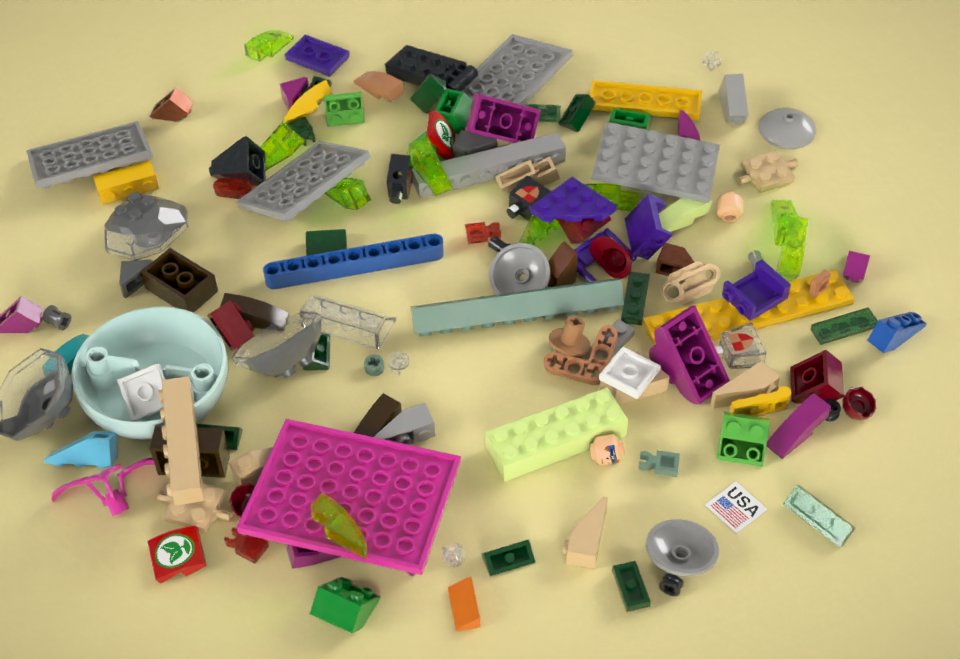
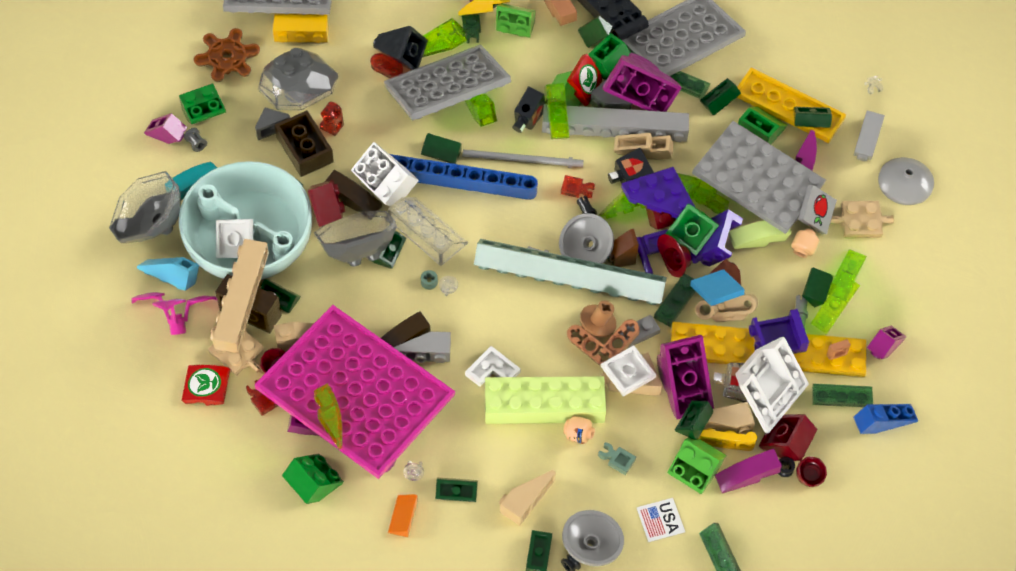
camera: 20 degrees right, 10 degrees up
(49, 281) = (201, 104): none -> green slope
(56, 221) = (229, 45): none -> dark orange plate
(199, 248) = (332, 116): none -> clear red leg
(280, 281) = (384, 175): none -> white slope
(462, 213) = (523, 158): none -> light grey bar
(480, 420) = (491, 363): none -> white plate
(621, 223) = (692, 228): none -> green slope
(673, 101) = (812, 117): none -> dark green slope
(675, 266) = (717, 287): none -> dark azure tile
(720, 394) = (694, 419): none -> dark green slope
(725, 172) = (817, 209): none -> light grey tile
(764, 239) = (817, 287): none -> dark green slope
(774, 333) = (771, 382): none -> white slope

